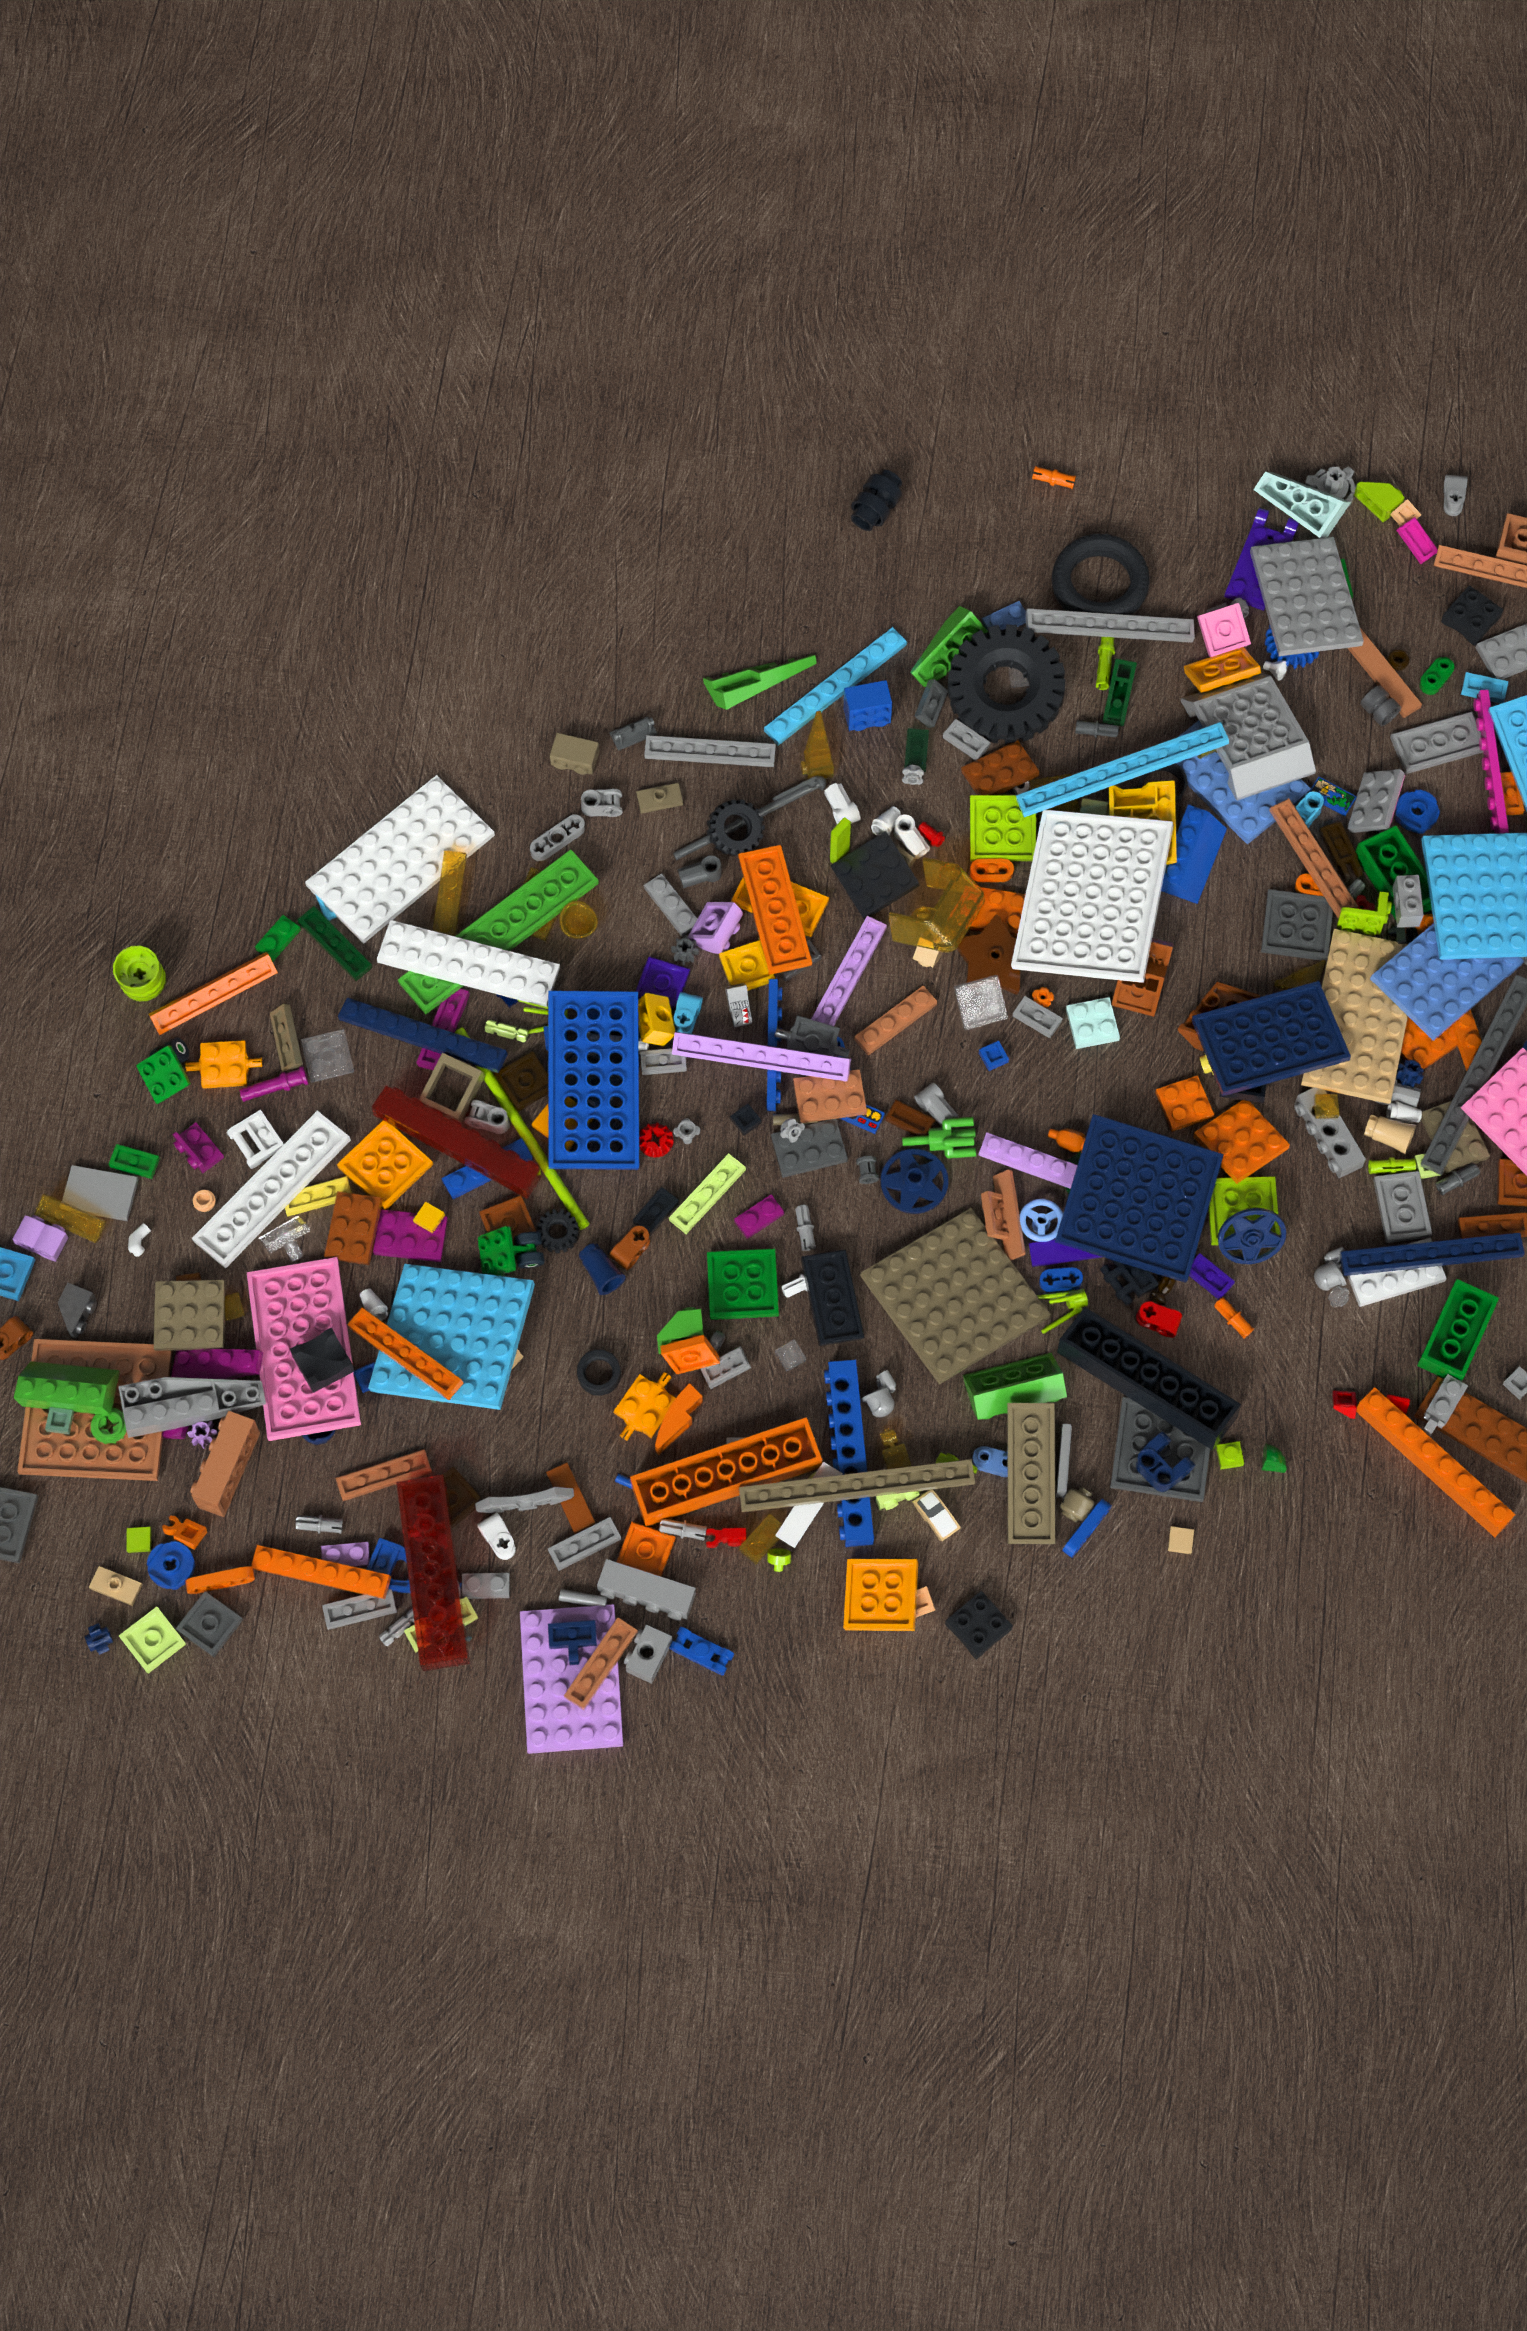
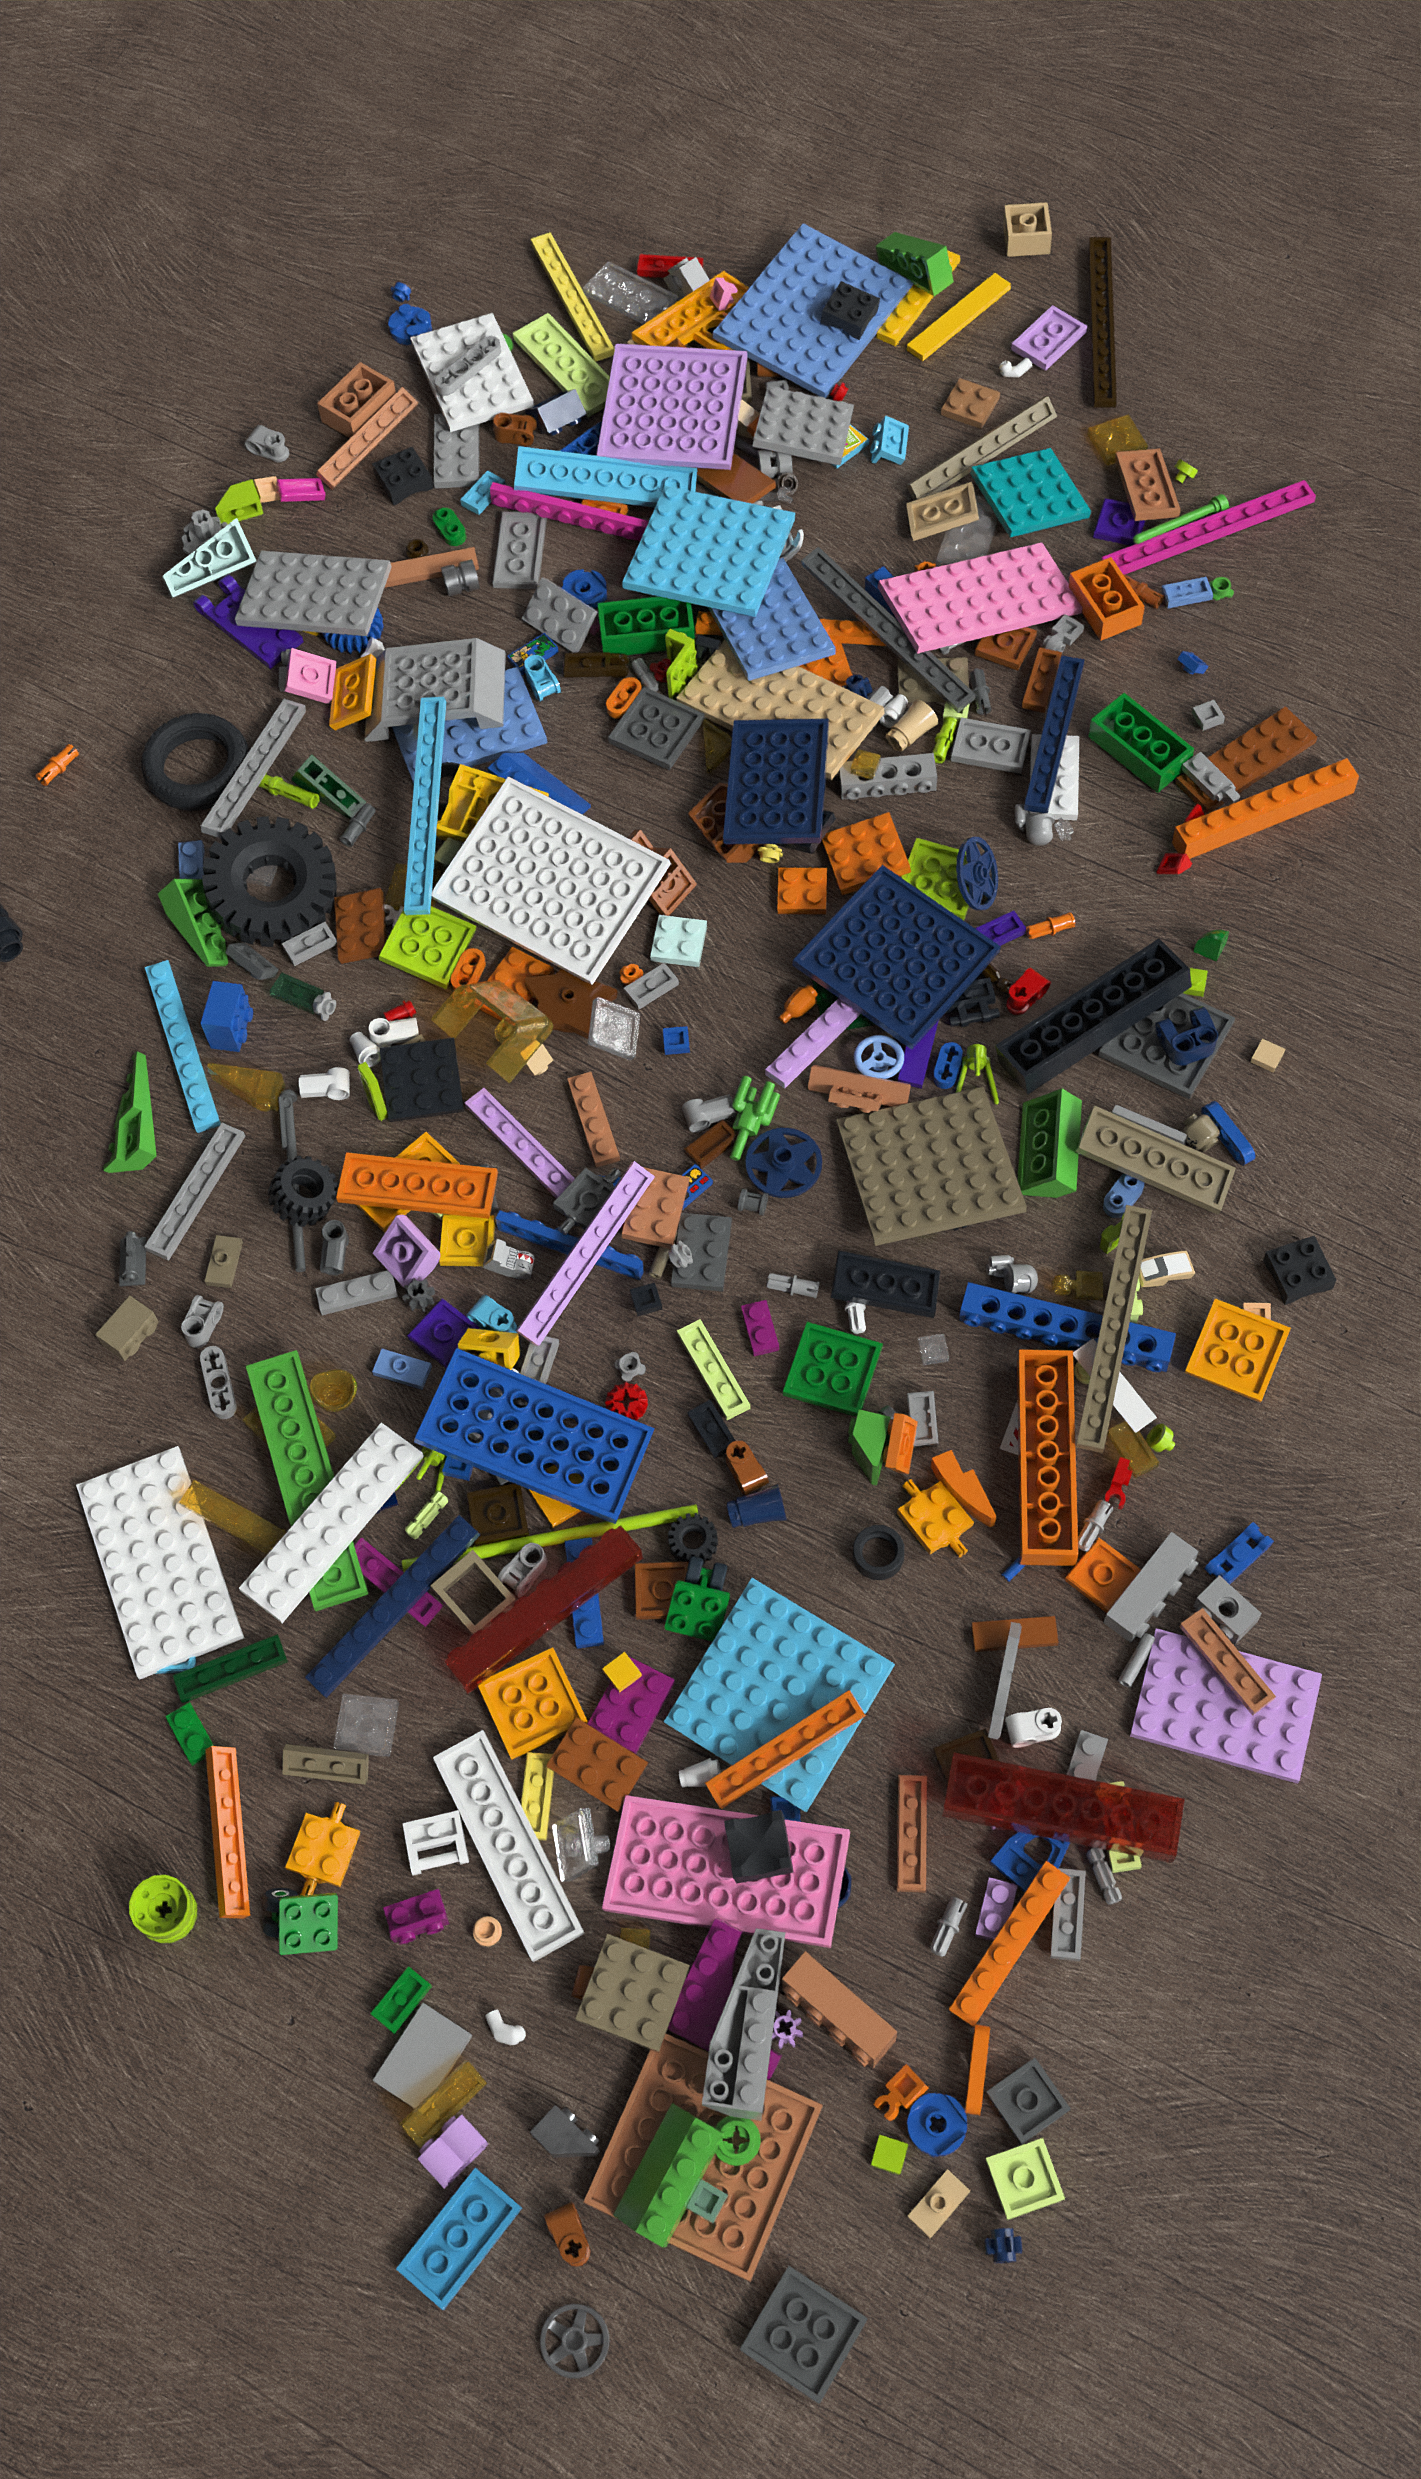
camera: 65 degrees left, 5 degrees down
(283, 1081) = (378, 1784): magenta pin -> none
(571, 1636) = (1185, 1681): dark blue plate -> none
(584, 1544) = (1074, 1636): light grey plate -> none
(619, 964) = (402, 1369): none -> medium blue plate
(1312, 856) = (595, 685): nougat tile -> none
(1408, 901) = (686, 616): light grey brick -> none

